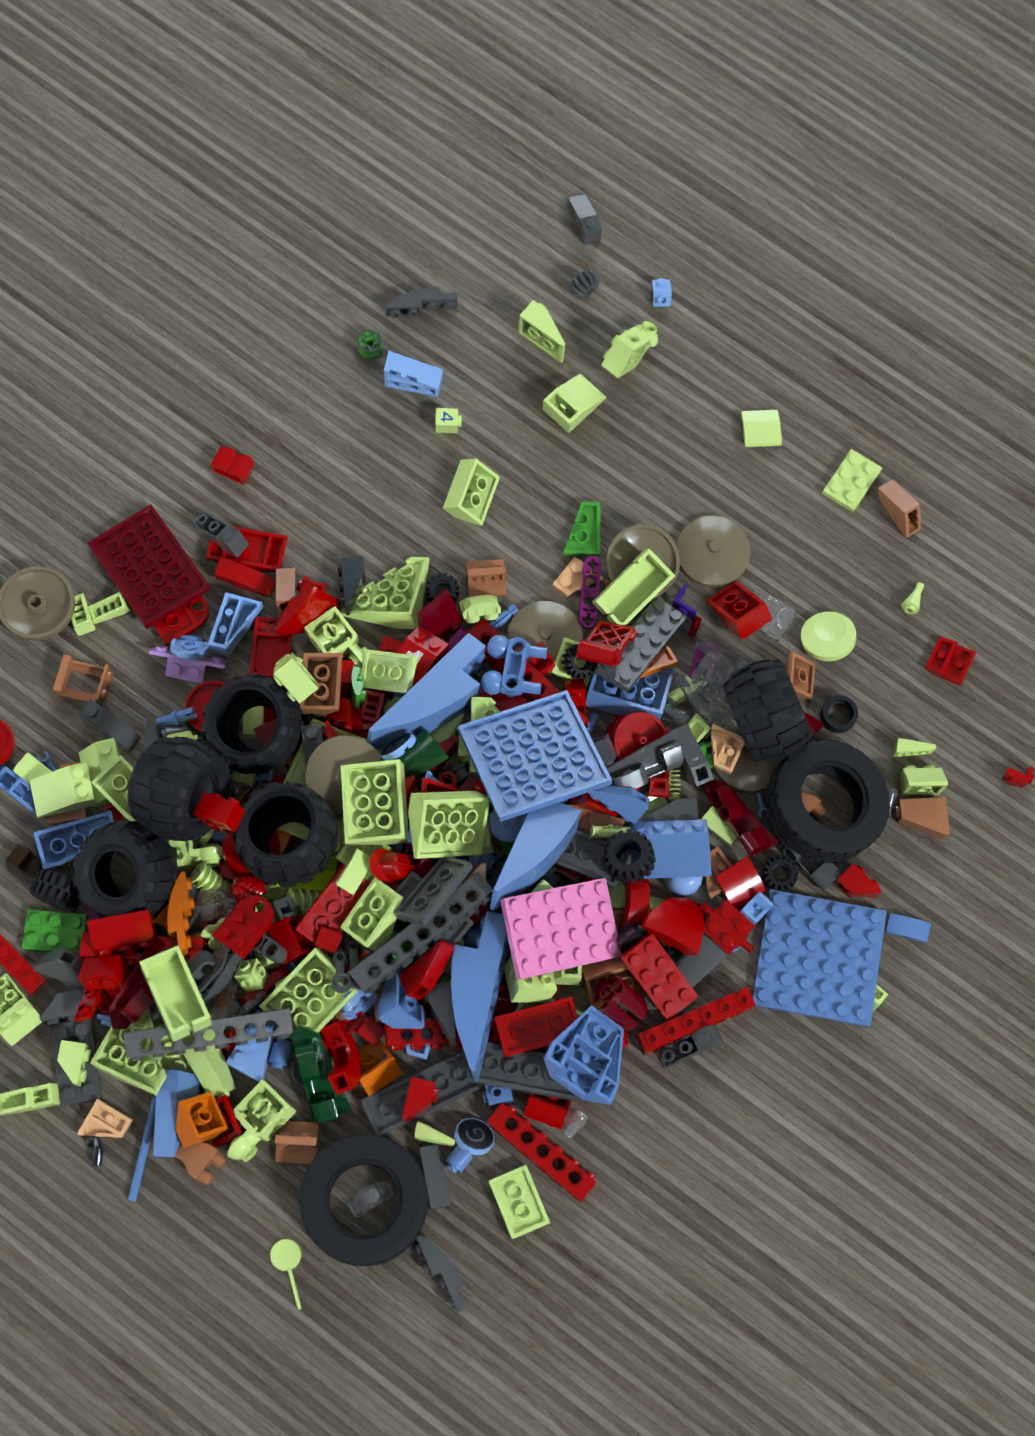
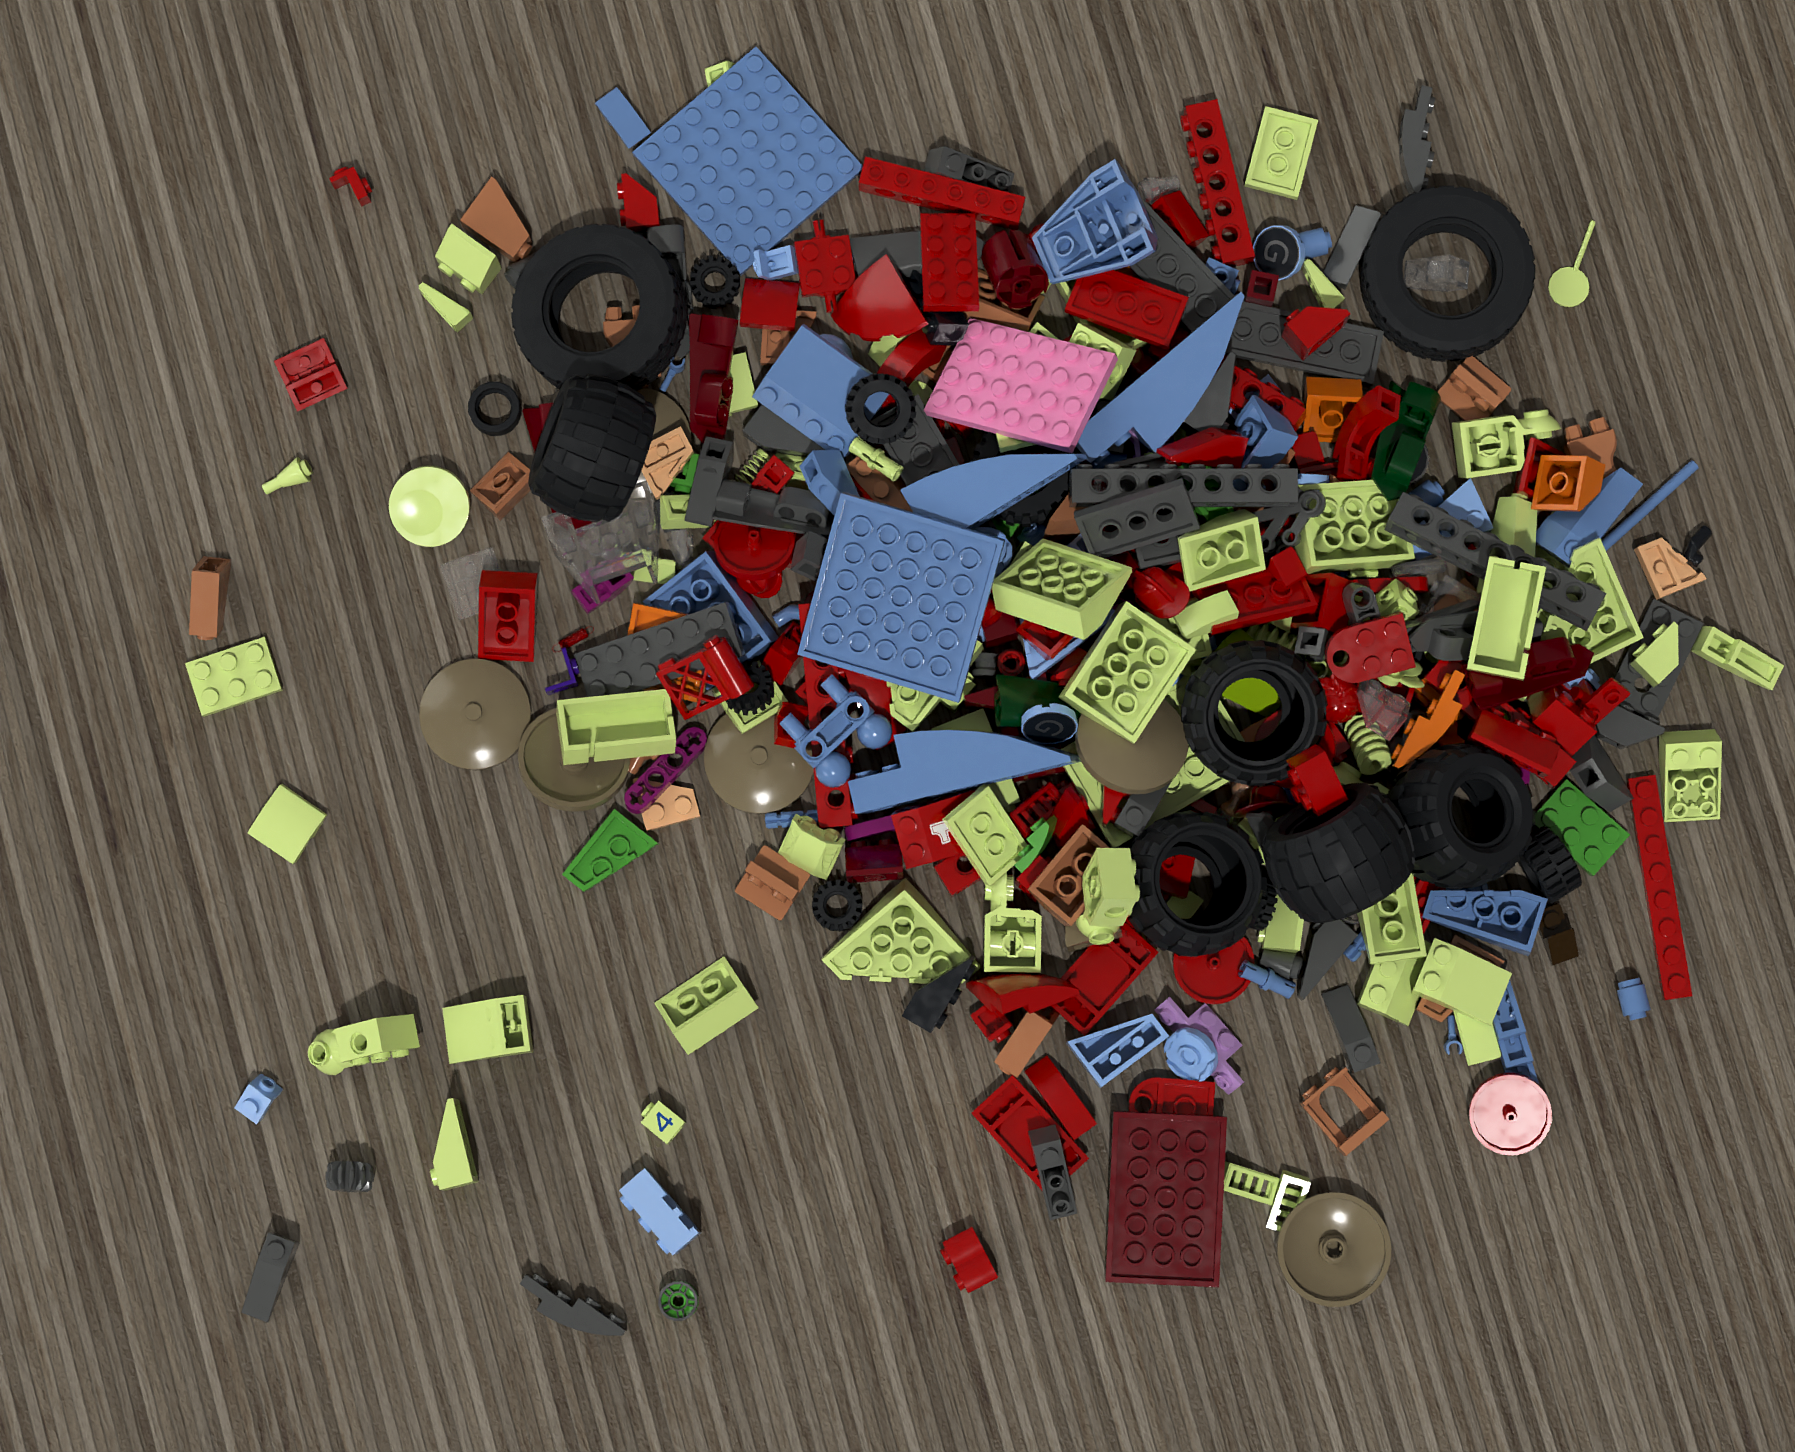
camera: 135 degrees left, 10 degrees up
(467, 1105) = (1261, 288): none -> dark red brick

